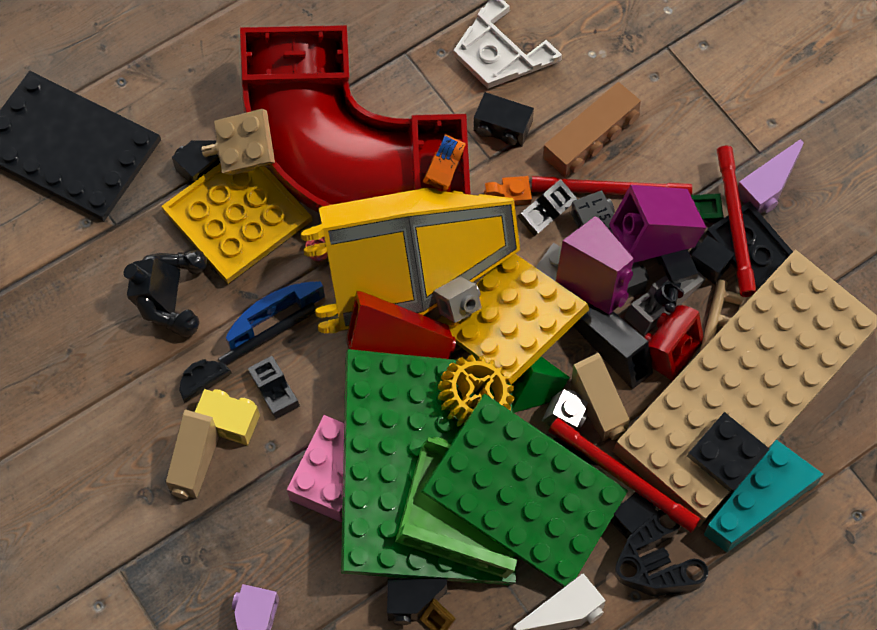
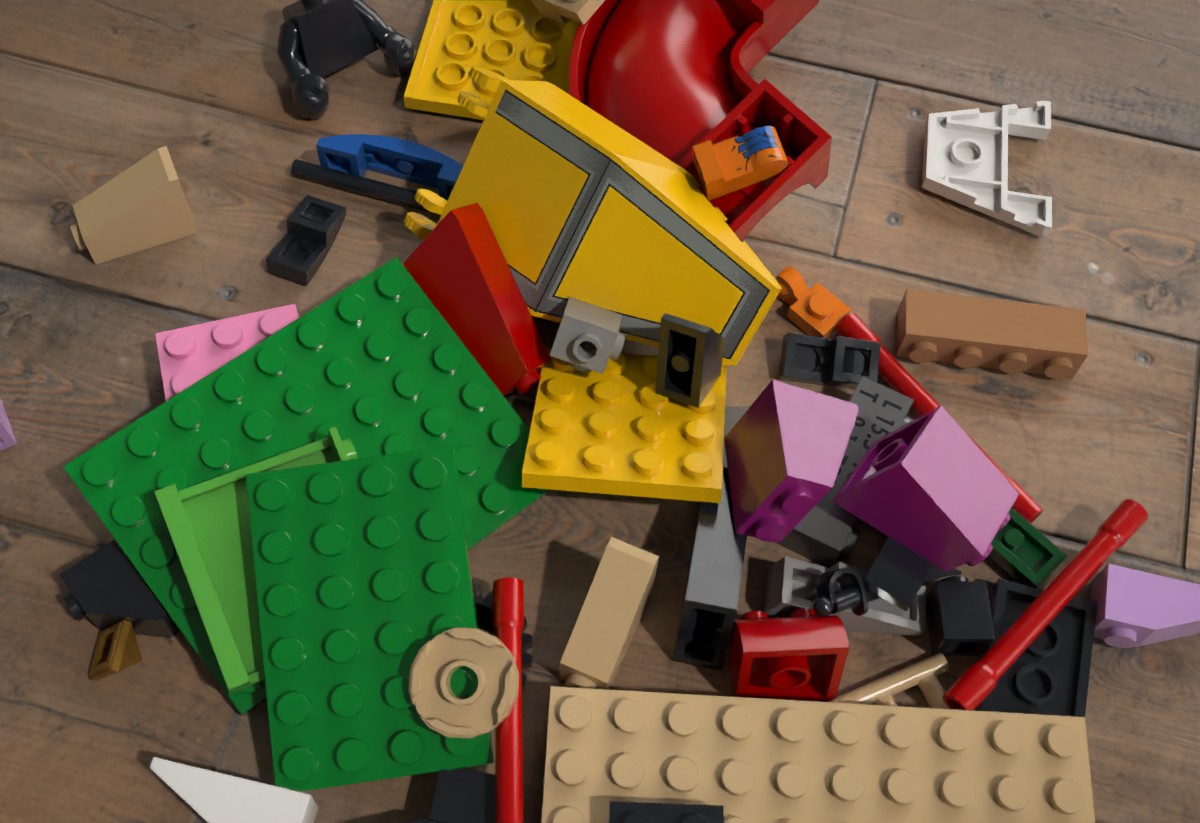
camera: 45 degrees right, 5 degrees down
(201, 376) = (254, 158): black plate -> none
(232, 417) = (220, 215): light yellow brick -> none
(463, 375) = (491, 450): yellow gear -> none
(503, 119) = (896, 228): black brick -> none
(512, 267) = (687, 360): none -> slope
(537, 385) = (565, 529): green slope -> none
(568, 407) = (553, 591): brick -> none
(574, 475) = (496, 683): none -> tan tile

